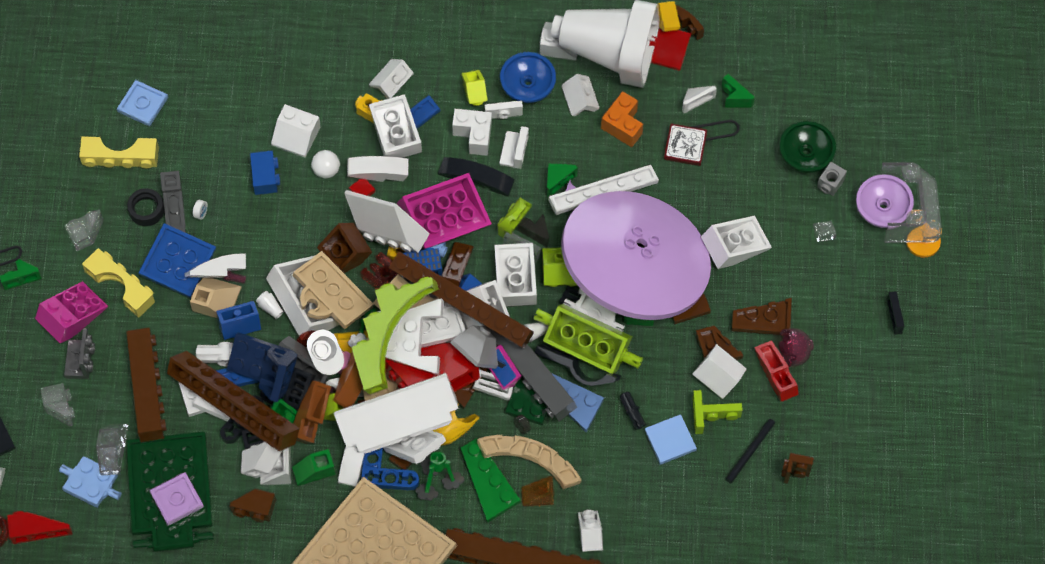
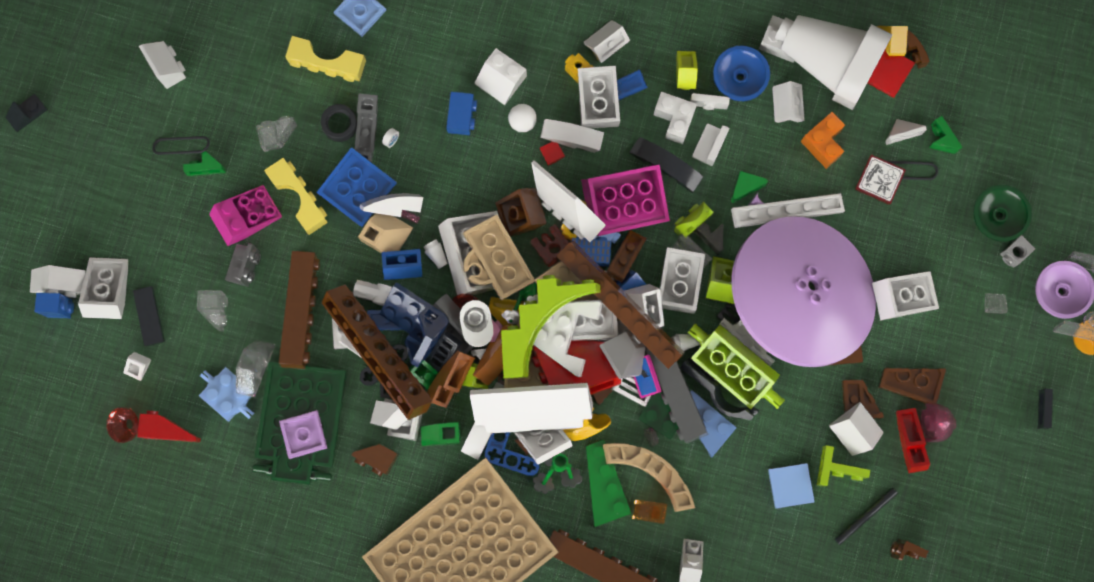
camera: 15 degrees right, 15 degrees up
(632, 410) = (761, 448): black axle -> none

